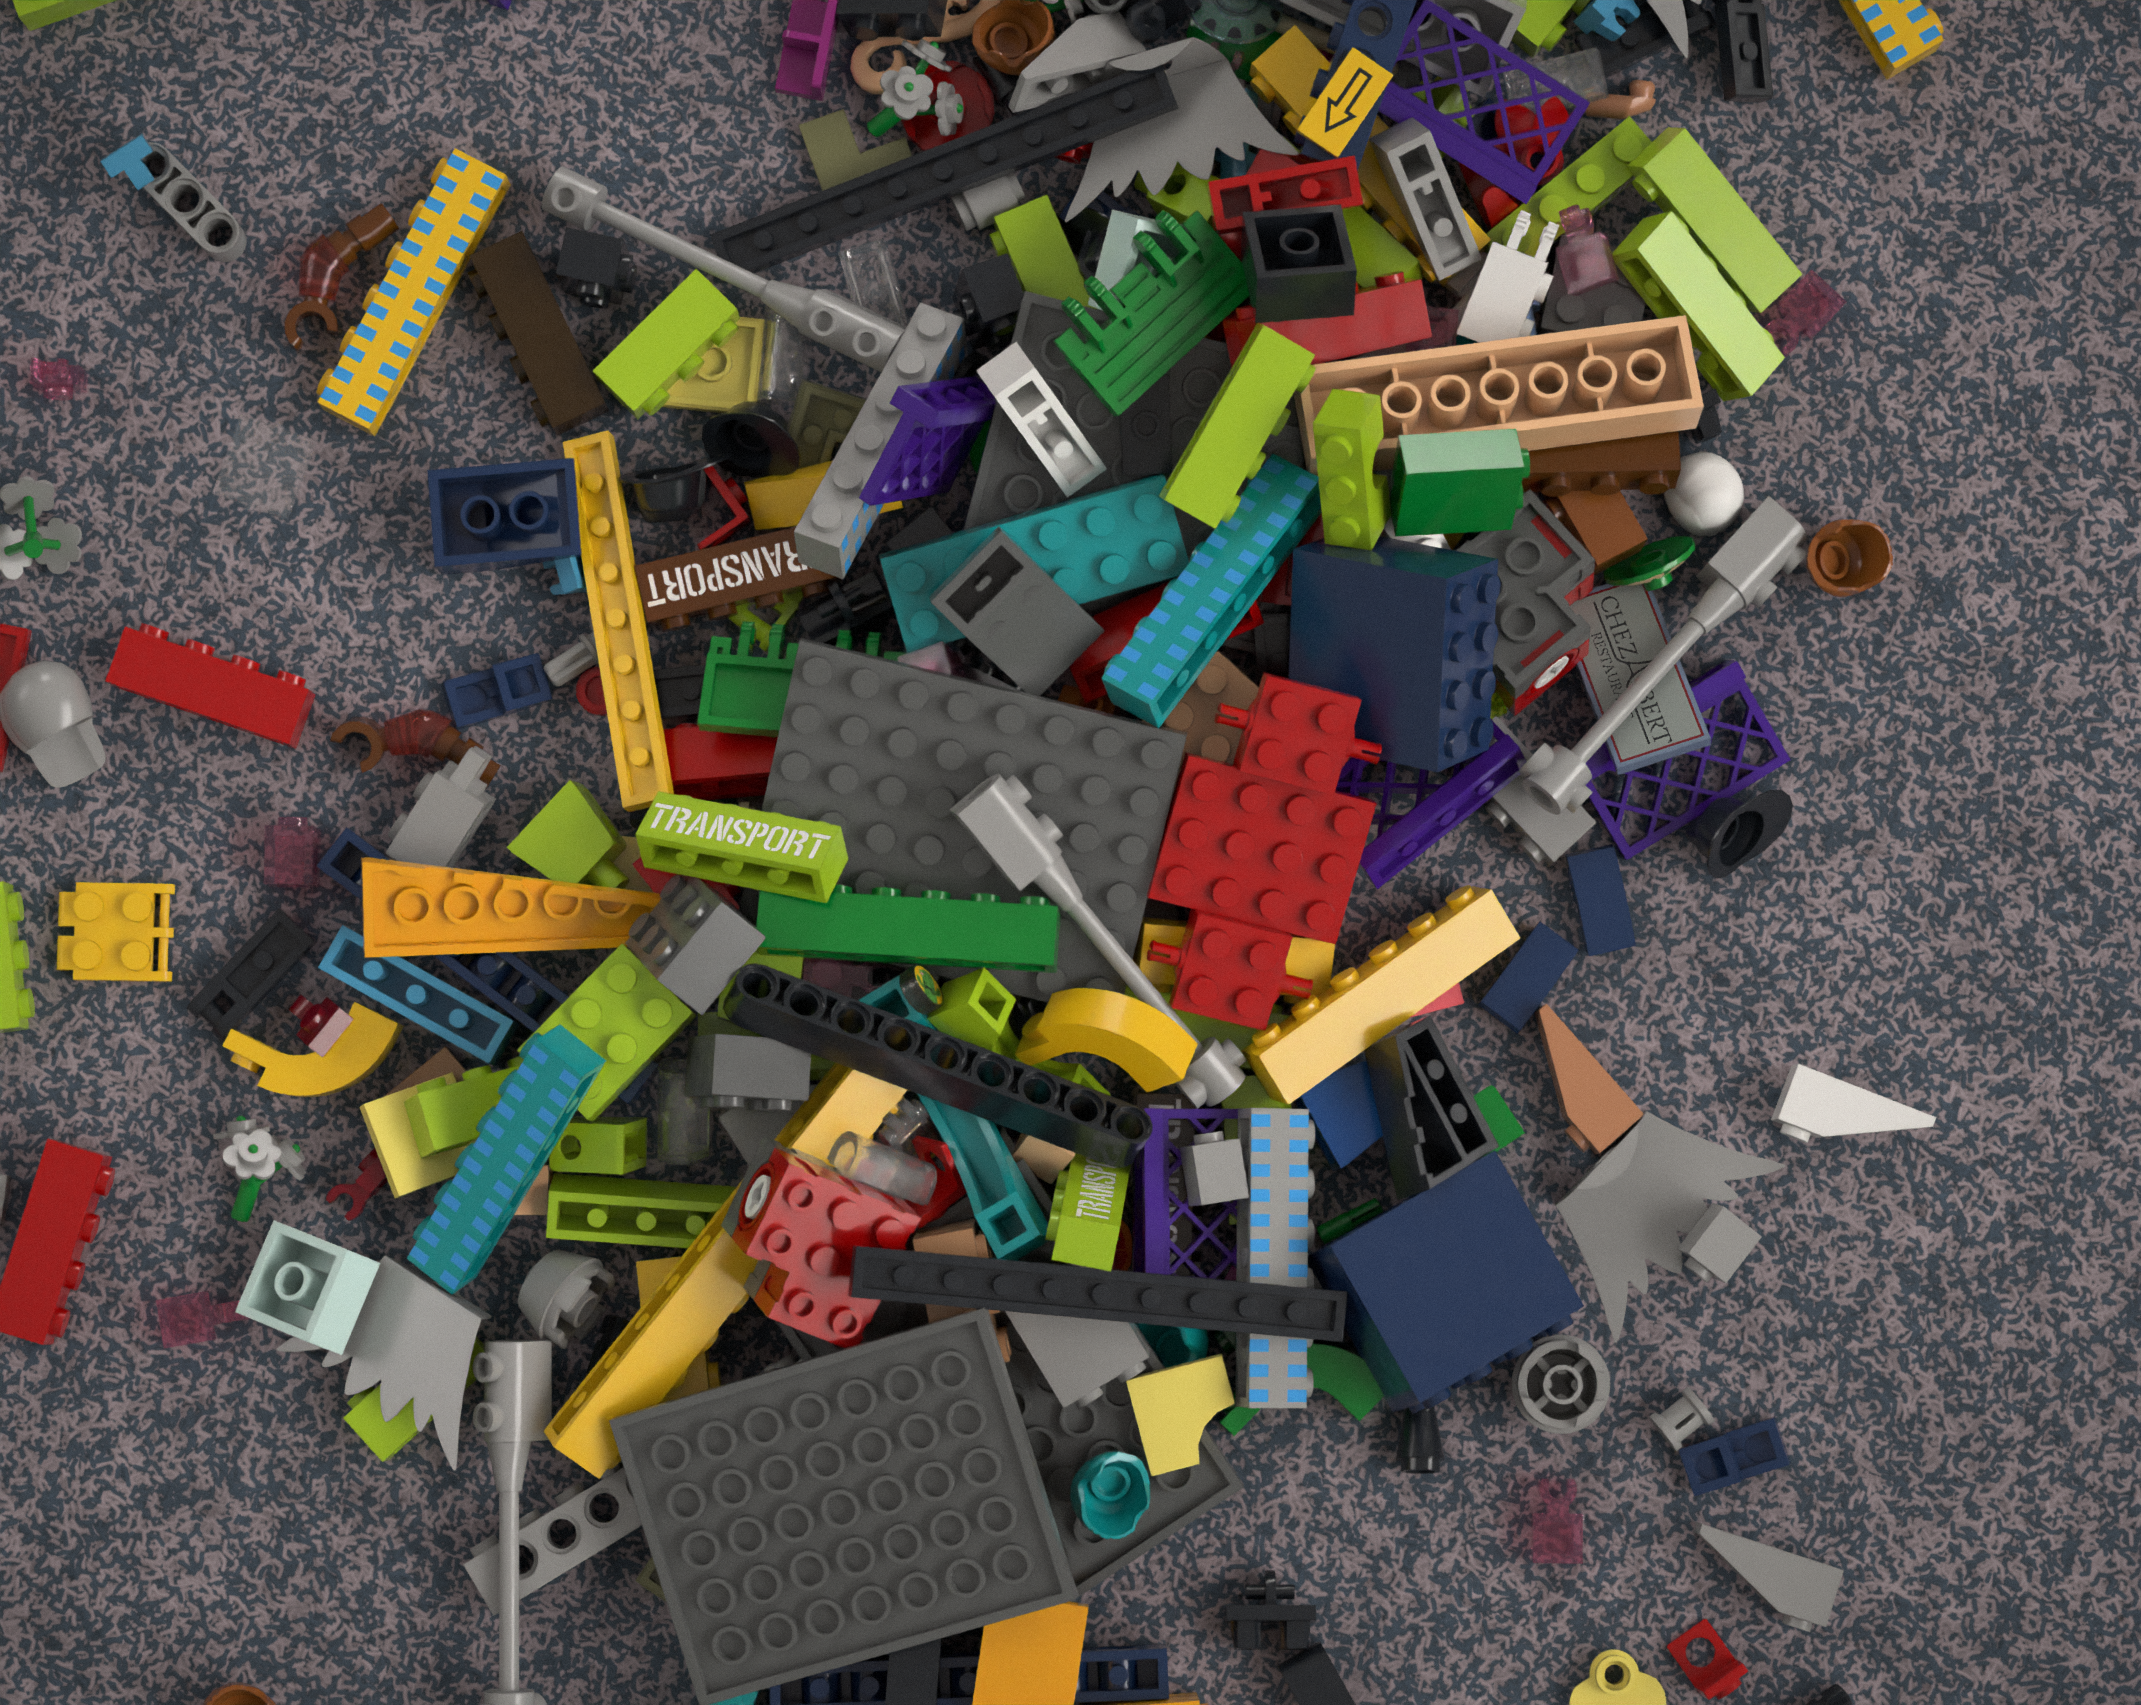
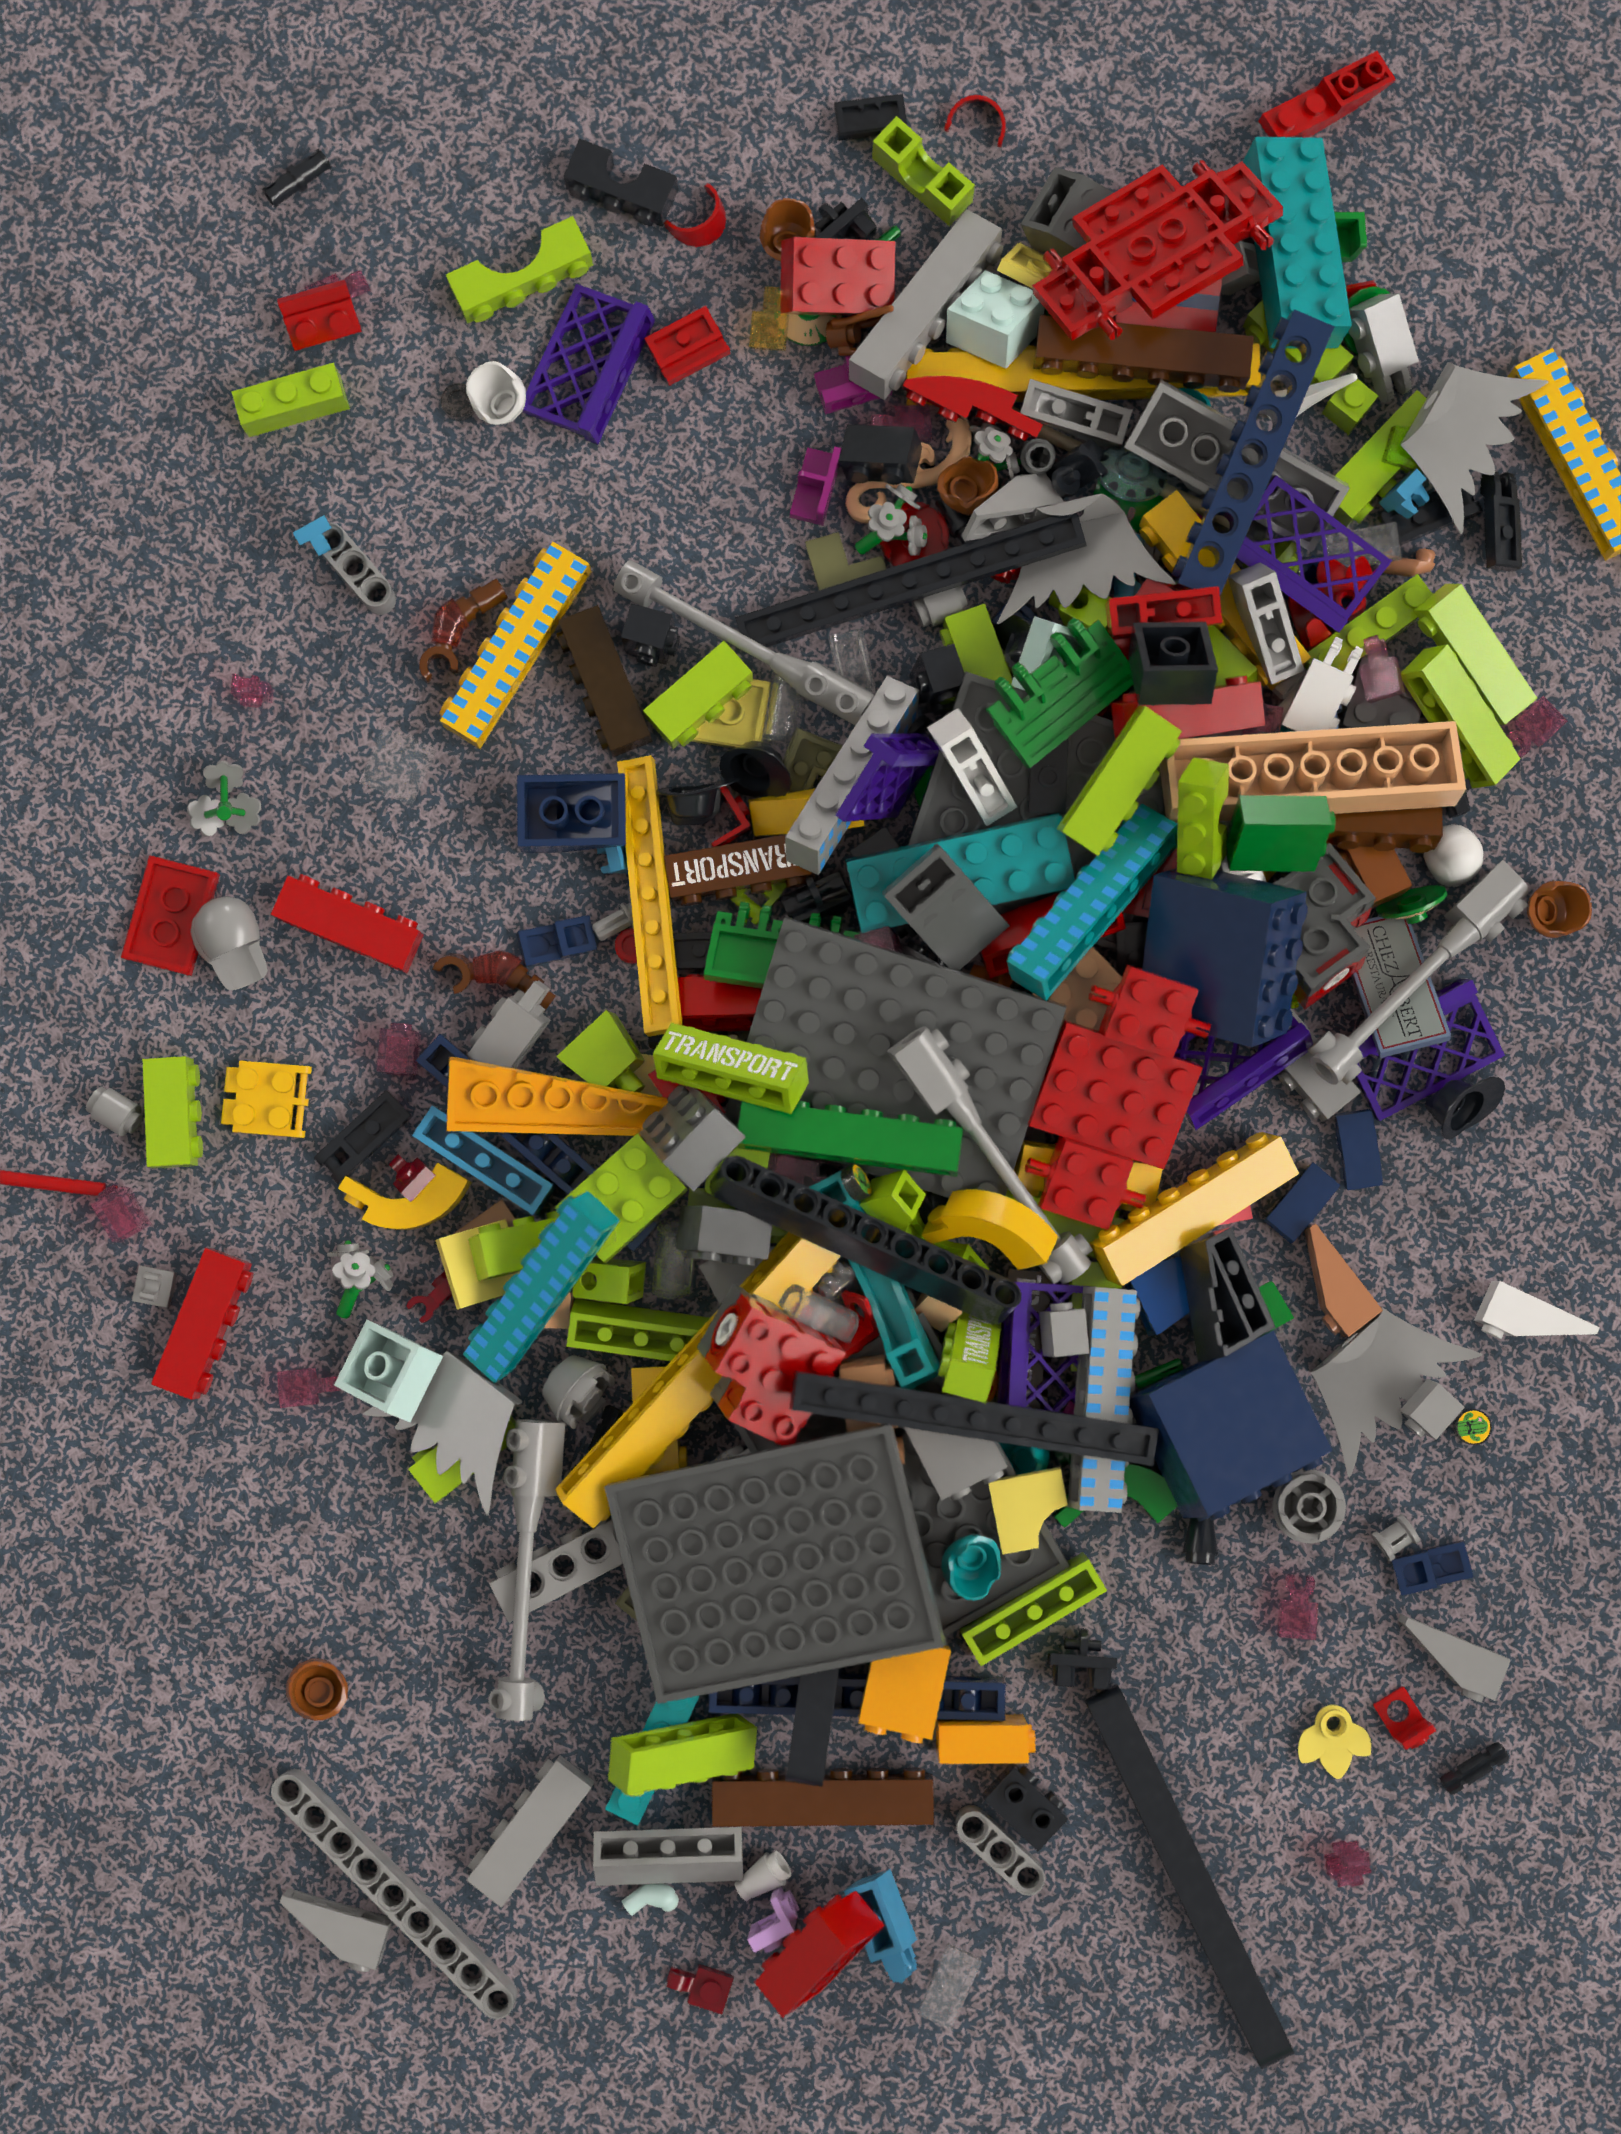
camera: 10 degrees right, 0 degrees up
(1198, 1549) = (1033, 1610): none -> lime brick
(1344, 102) = (1213, 547): yellow tile -> none
(1776, 1263) = (1472, 1426): none -> tile

